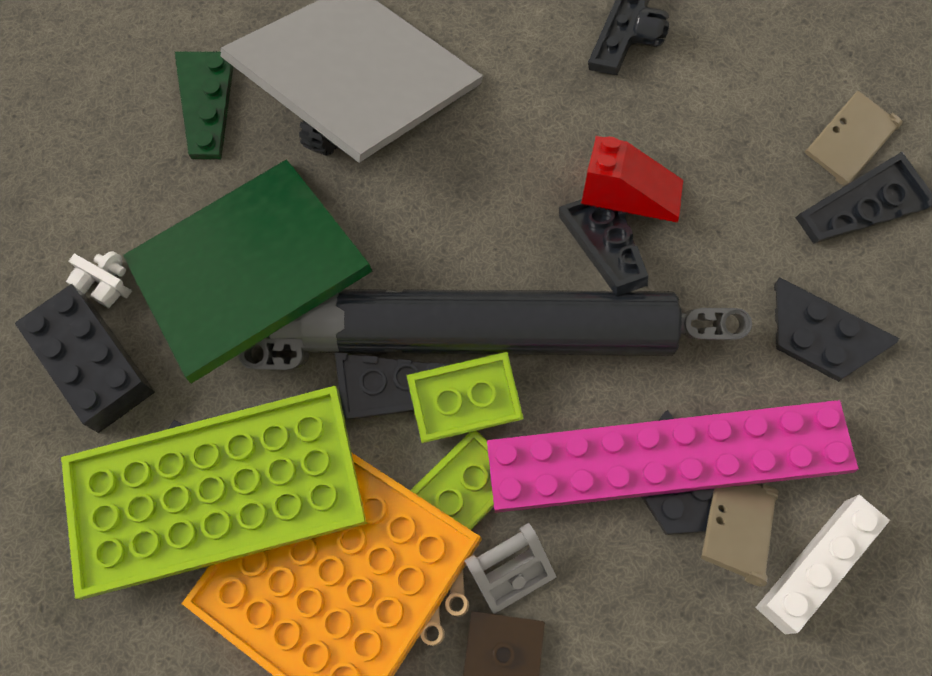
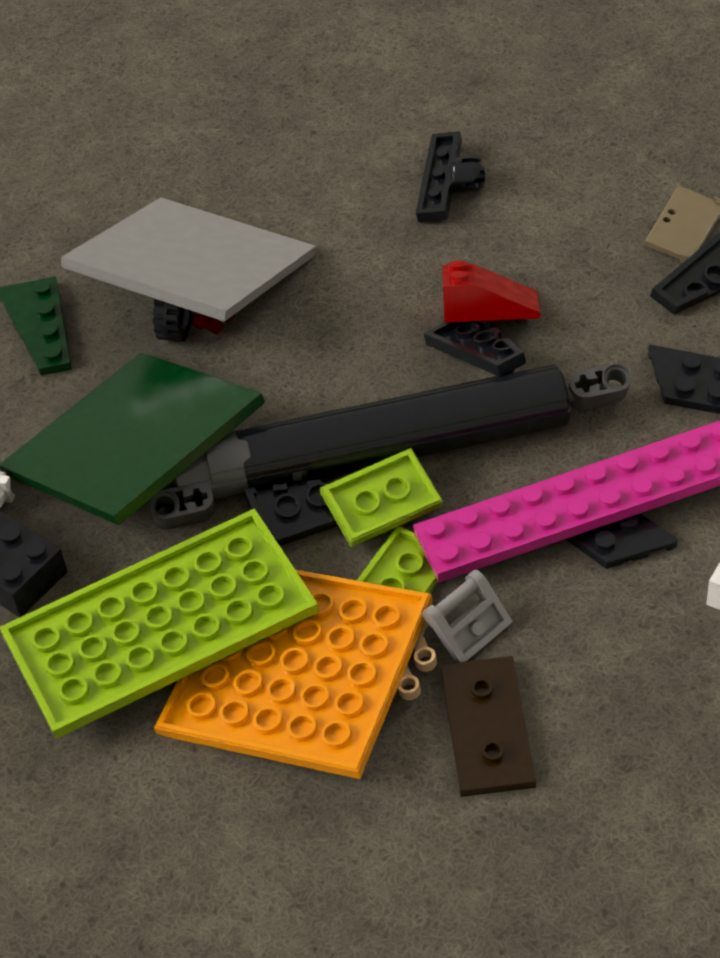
camera: 15 degrees left, 20 degrees down
(741, 534) = (670, 535): dark tan door -> none

